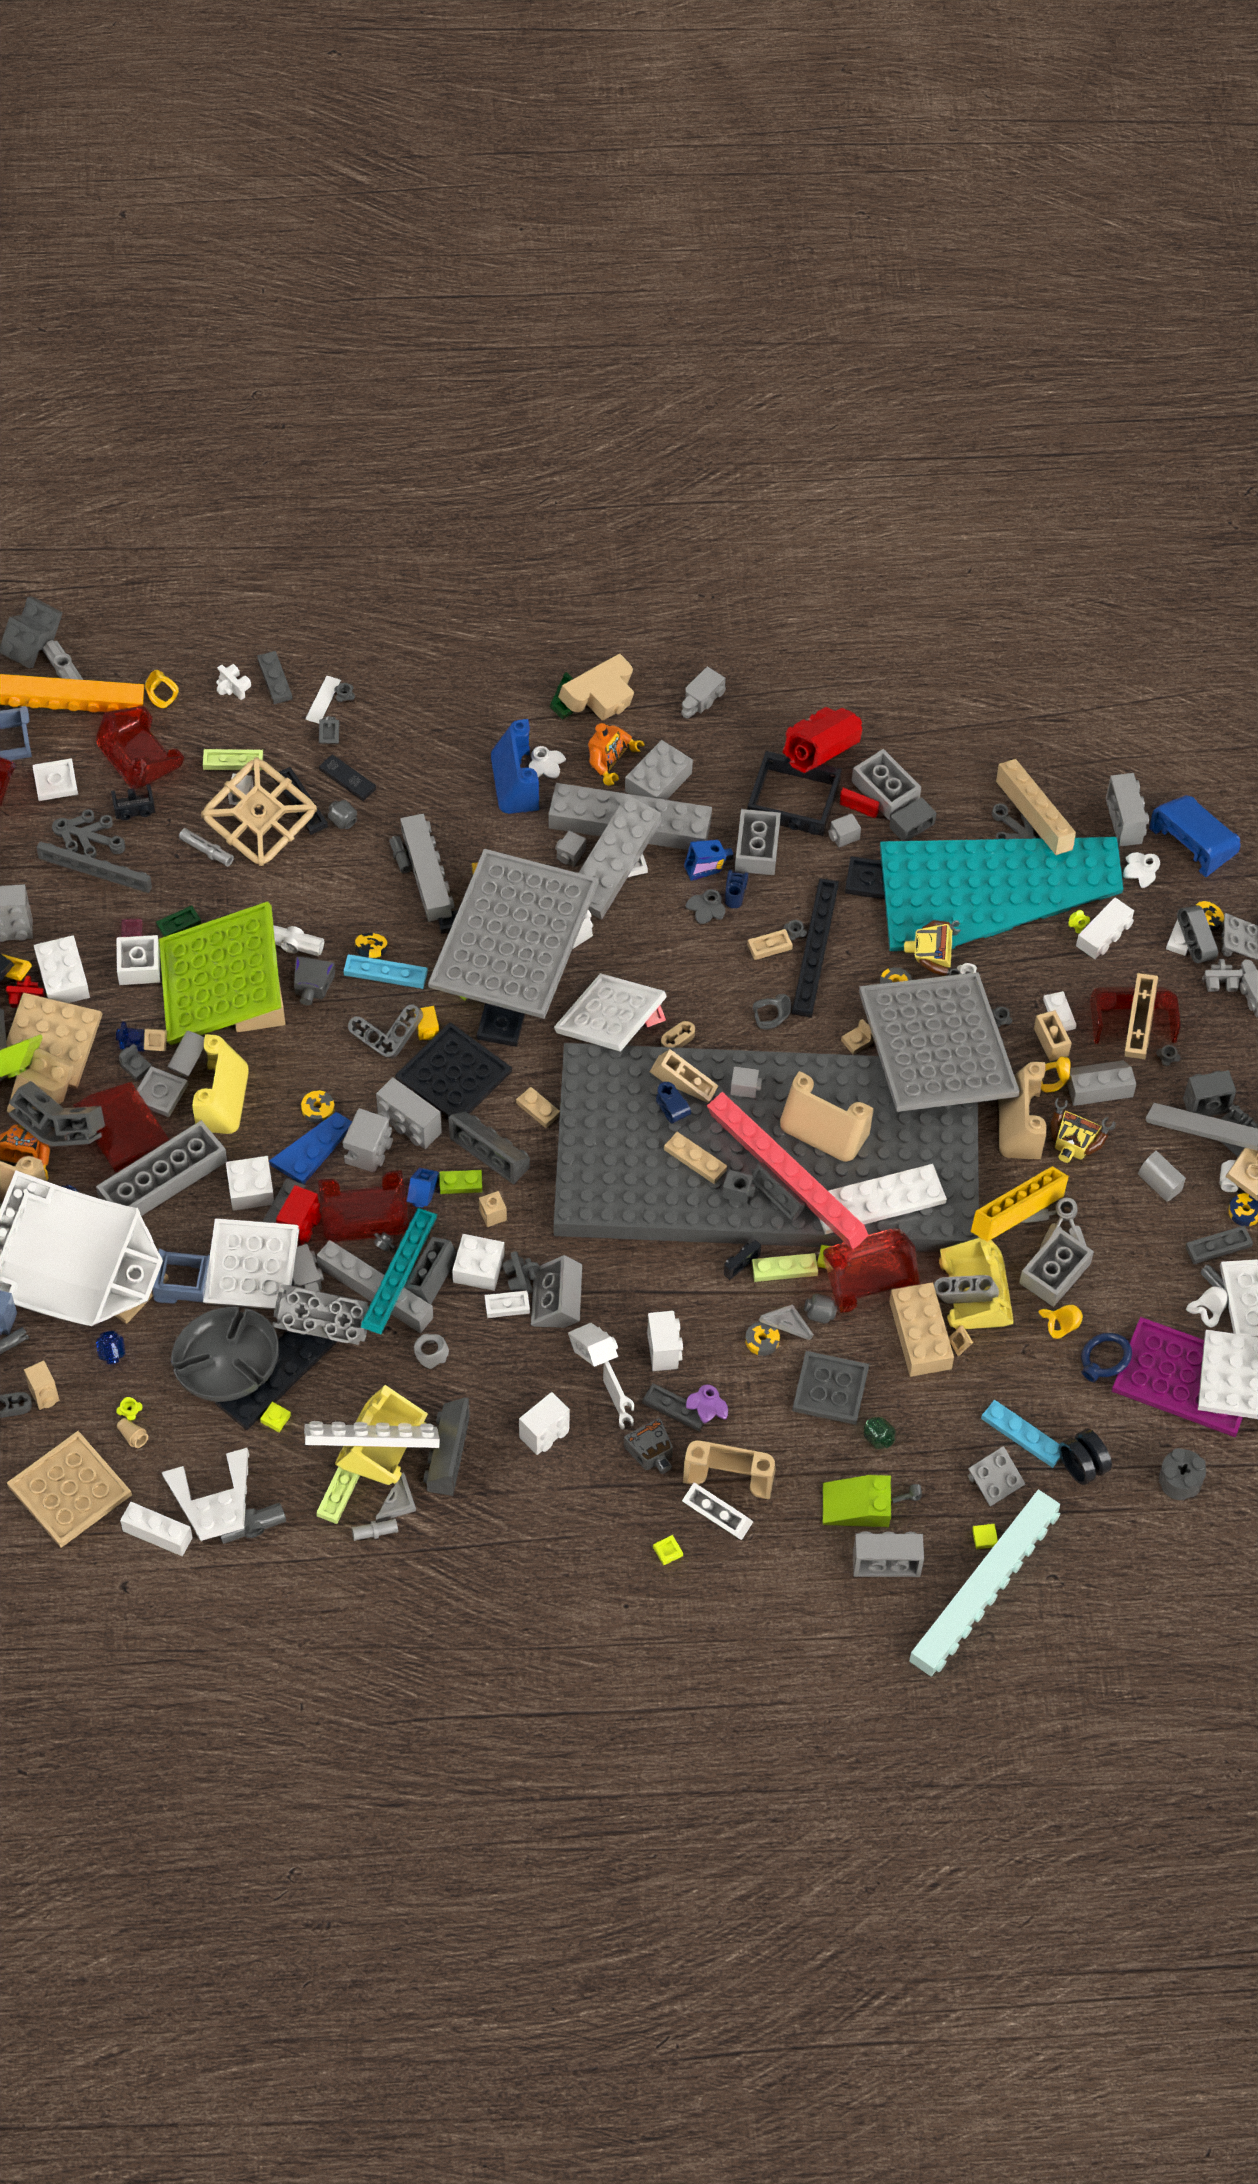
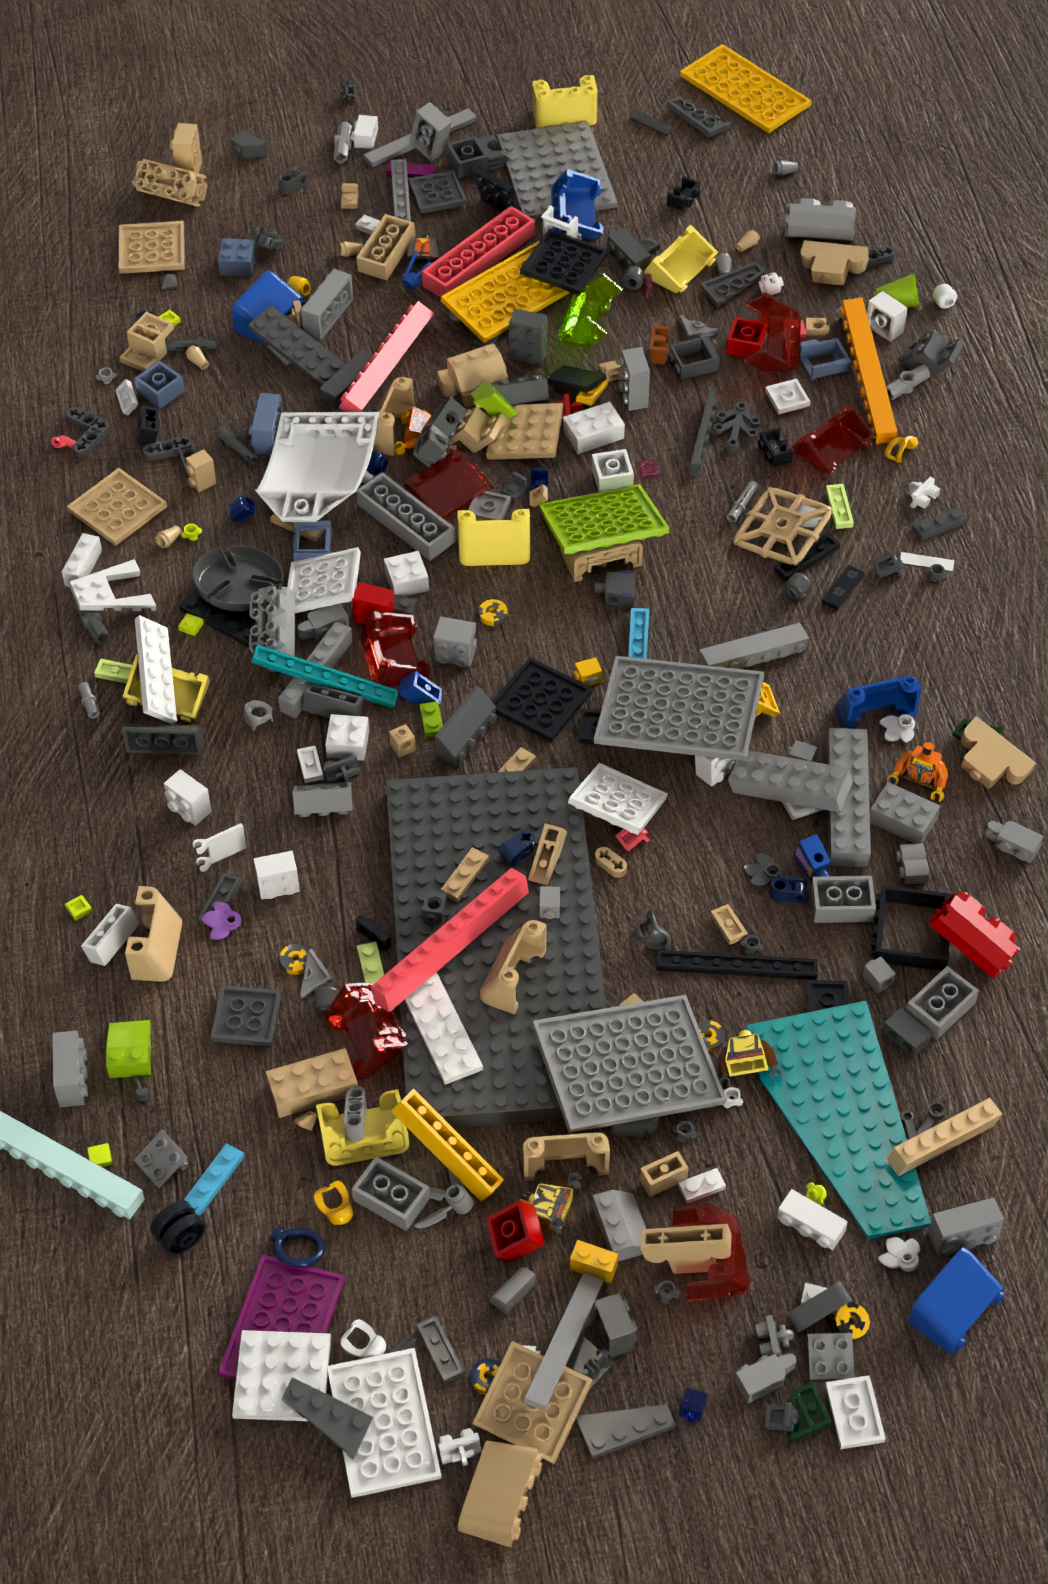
camera: 85 degrees right, 5 degrees down
(178, 921) = (660, 495): dark green plate -> none
(187, 1053) = (536, 513): light grey brick -> none
(295, 940) = (657, 571): white piece -> none
(310, 1151) = (440, 605): blue wing -> none
(370, 945) = (663, 624): piece -> none
(384, 1241) = (362, 671): dark grey plate -> none
(391, 1037) = (565, 645): dark grey beam -> none
(397, 1502) = (119, 715): light grey tile -> none
(409, 1113) = (487, 664): light grey brick -> none
(593, 1344) = (263, 819): white brick -> none
(650, 1446) = (177, 881): dark grey torso -> none
(718, 779) = (913, 863): none -> light grey brick
(859, 803) = (916, 981): red tile -> none
(879, 1432) = (200, 1057): clear green head -> none
(1063, 1070) = (623, 1181): yellow piece -> none
(1108, 1162) = (515, 1231): none -> red brick
(1138, 1106) = (594, 1261): none -> yellow brick
(1182, 1474) = (168, 1322): dark grey brick -> none

